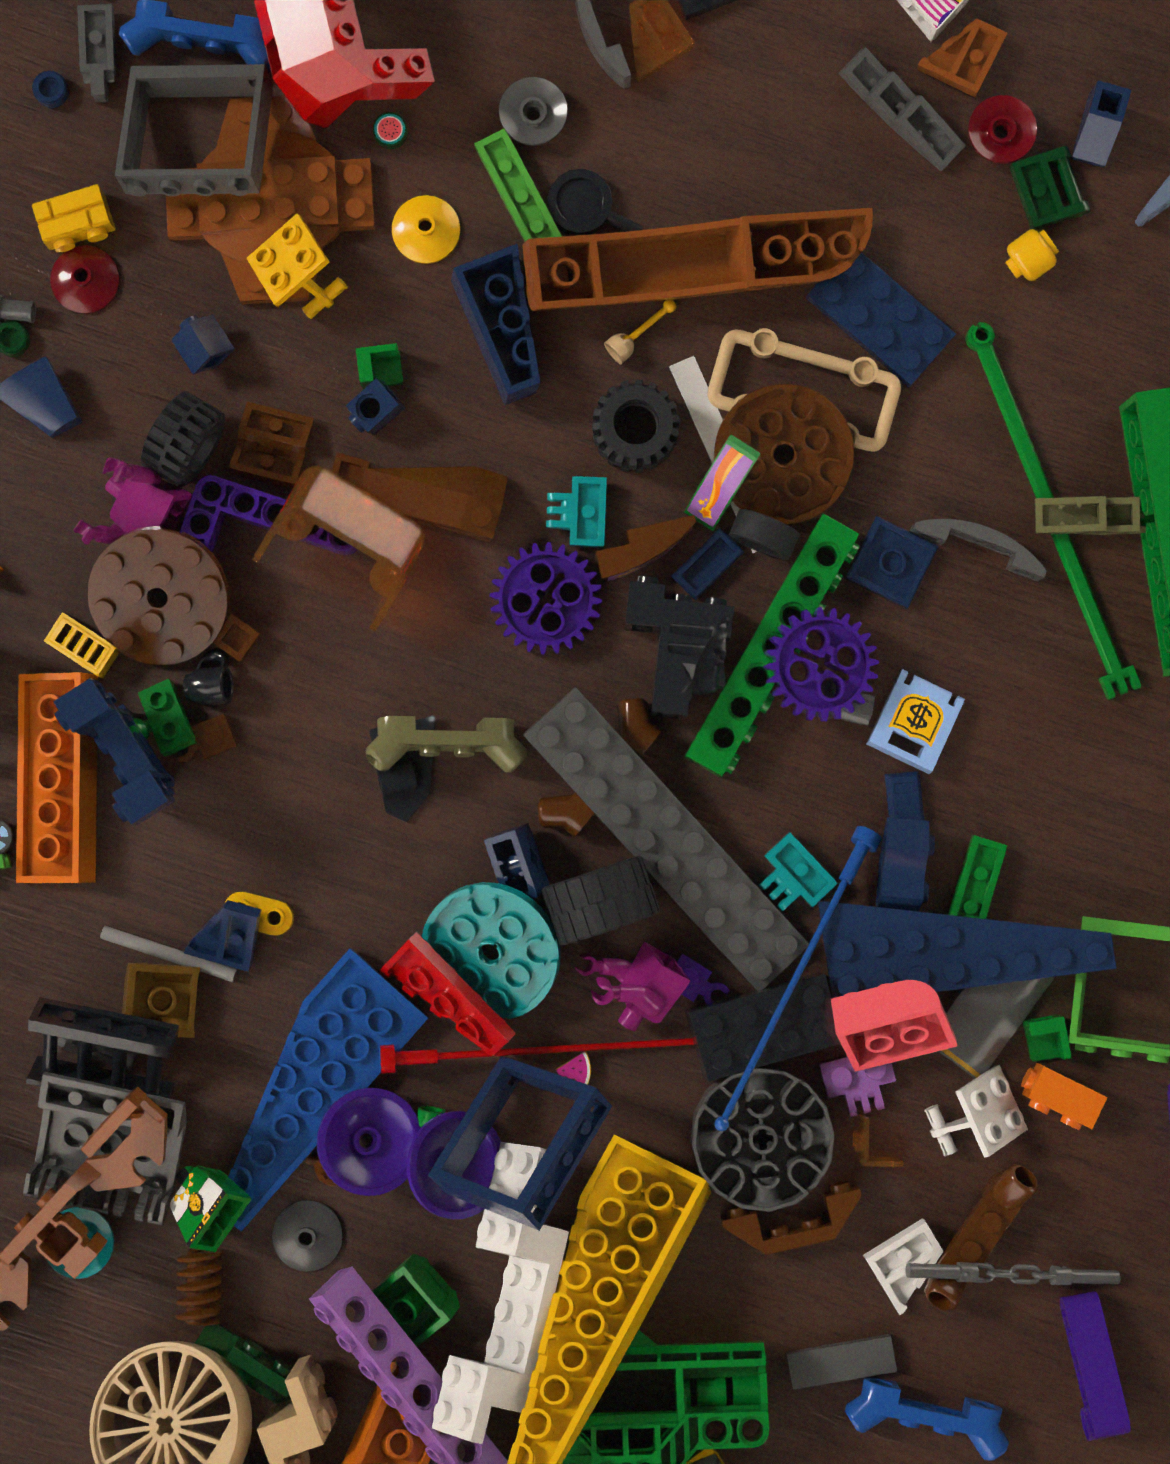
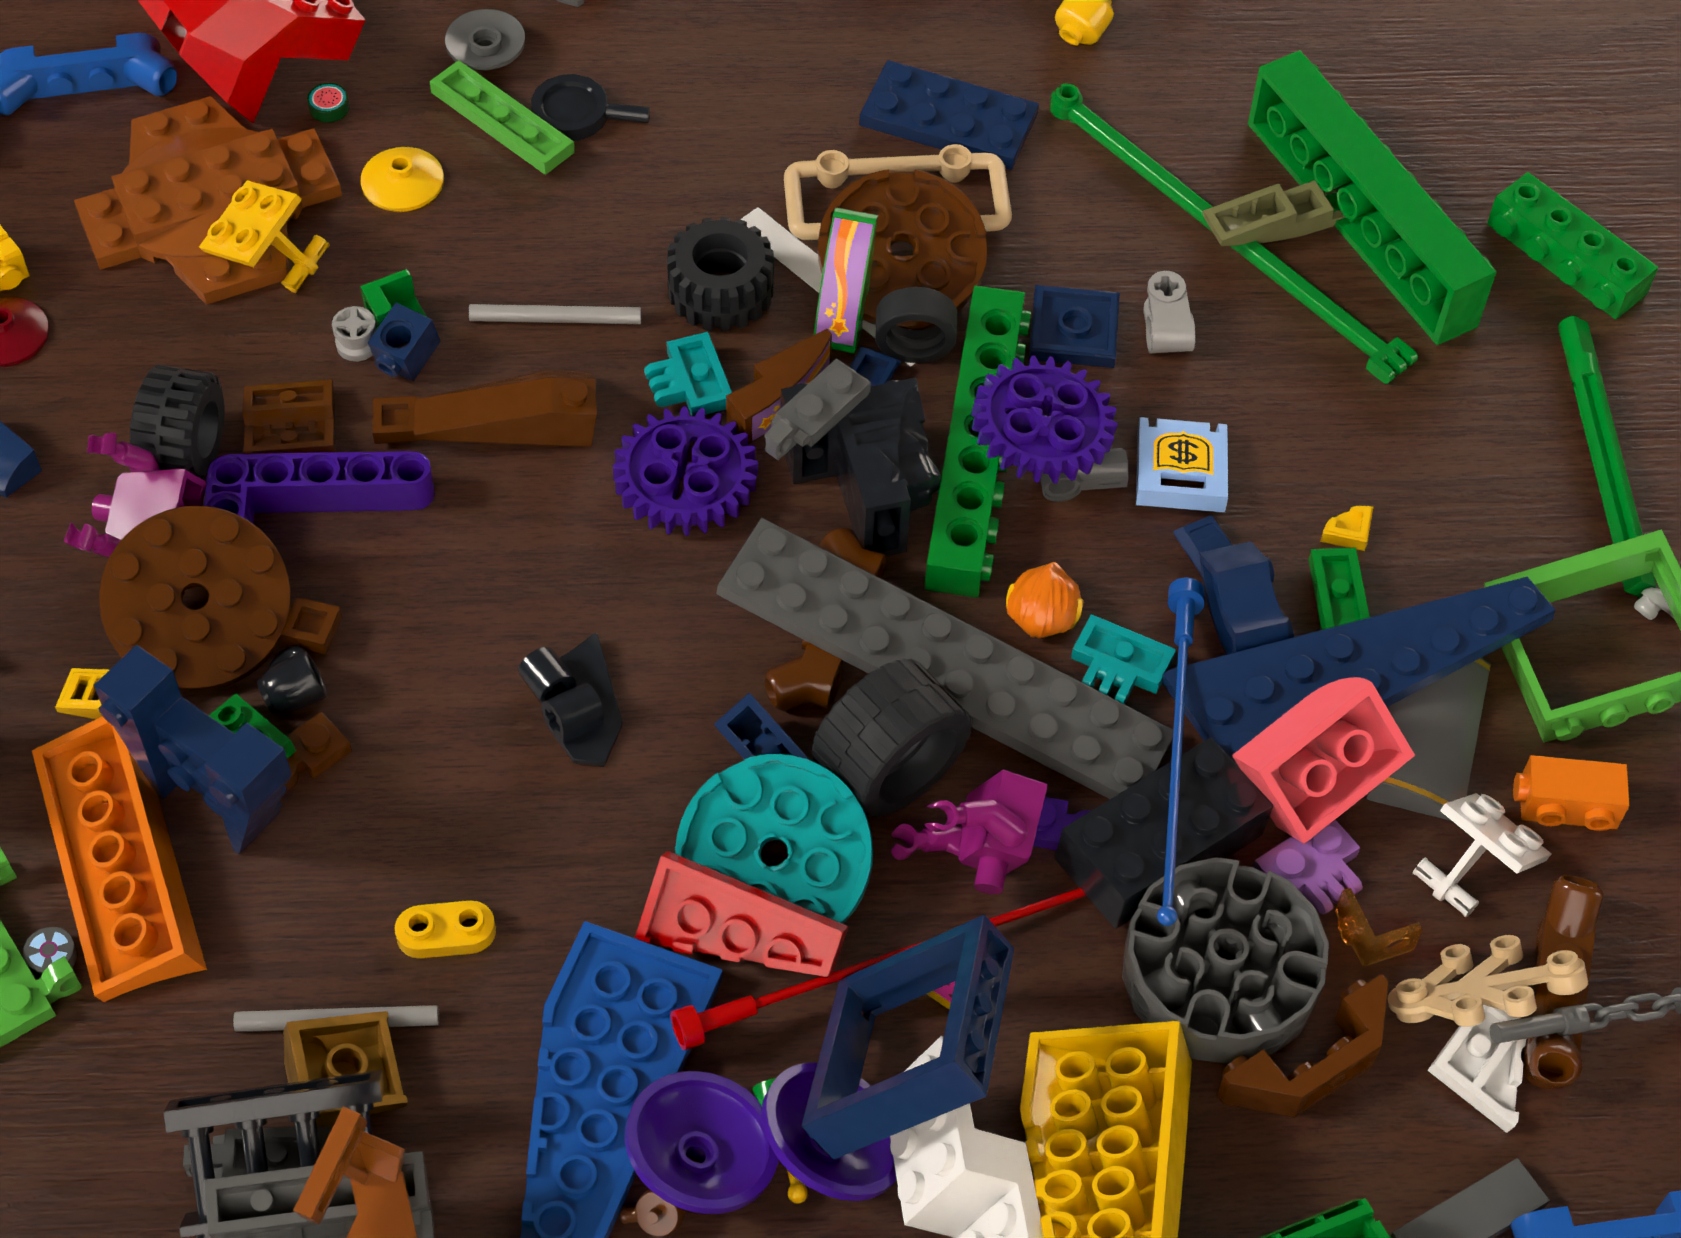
camera: 20 degrees left, 30 degrees down
(193, 82) = (88, 108): dark grey window -> none
(202, 343) = (171, 338): dark blue brick -> none
(228, 936) = (414, 957): dark blue wing -> none
(340, 375) = (346, 326): none -> light grey wheel
(358, 520) = (368, 416): clear orange windscreen -> none
(399, 735) = (565, 644): olive plate -> none
(499, 317) = (521, 222): dark blue wedge -> none
(500, 411) = (554, 314): none -> light grey bar
(622, 346) = (670, 214): hinge -> none
(648, 613) = (816, 409): none -> dark grey hinge
(693, 259) = (712, 108): dark orange slope -> none
(762, 806) = (1044, 601): none -> orange hair
(921, 1219) = (1420, 999): none -> tan plant
(963, 592) = (1168, 314): none -> light grey piece
(1015, 819) = (1349, 528): none -> yellow tile
(1020, 561) = (1219, 274): dark grey slope -> none
(1047, 1038) = (1516, 733): green panel -> none

